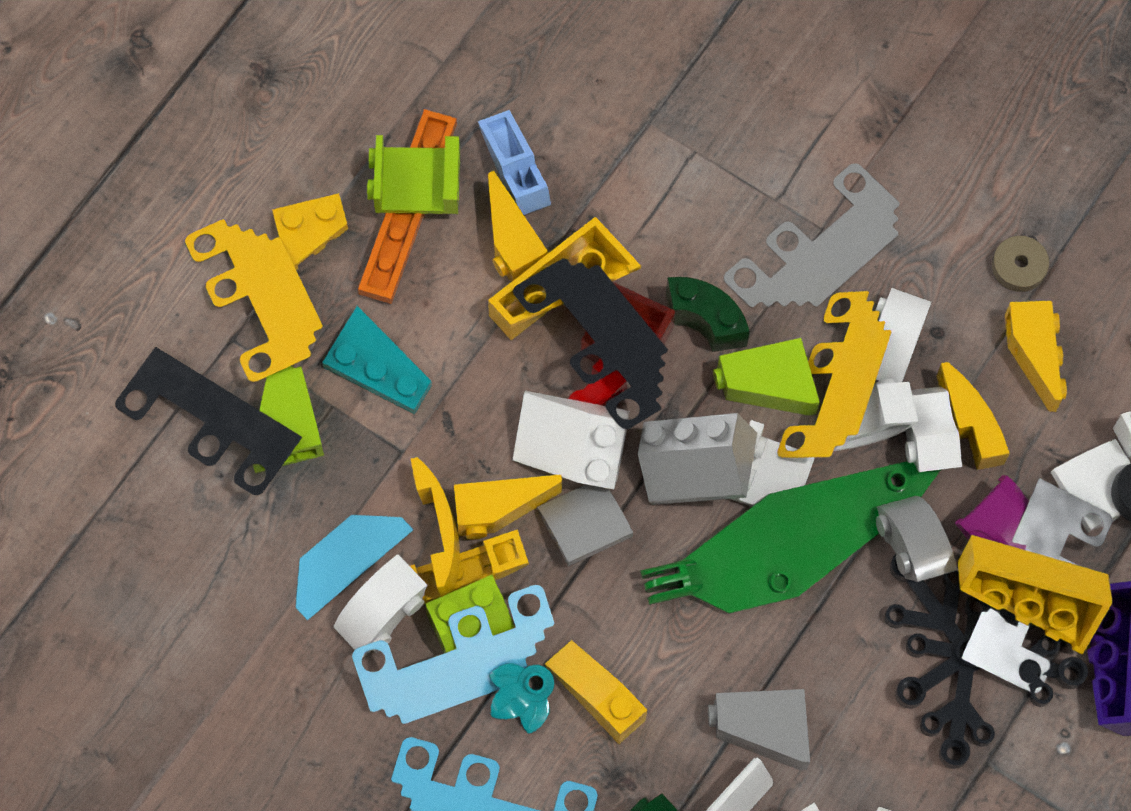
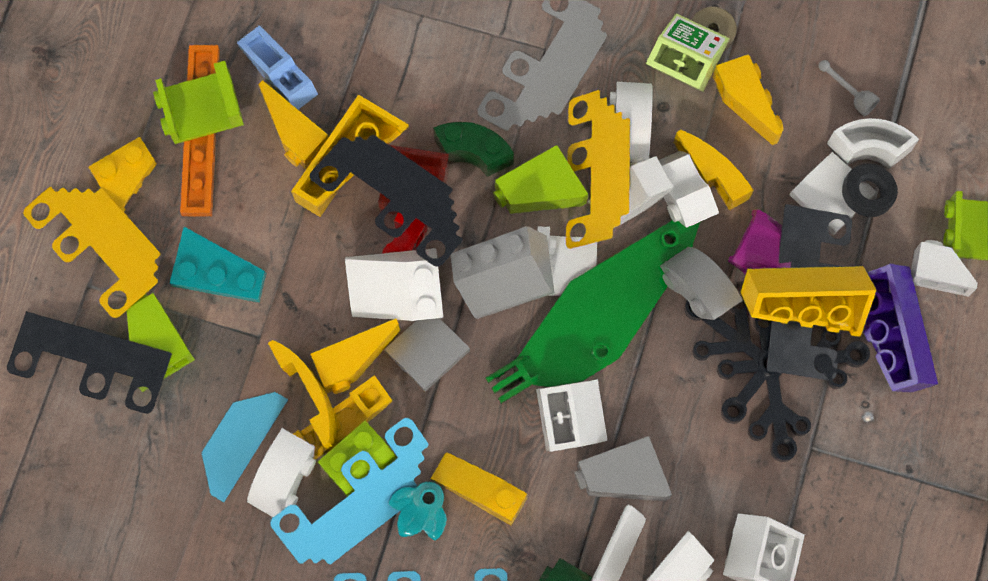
camera: 15 degrees left, 5 degrees up
(725, 640) = (571, 415): none -> white slope
(982, 278) = (687, 52): none -> yellowish green slope

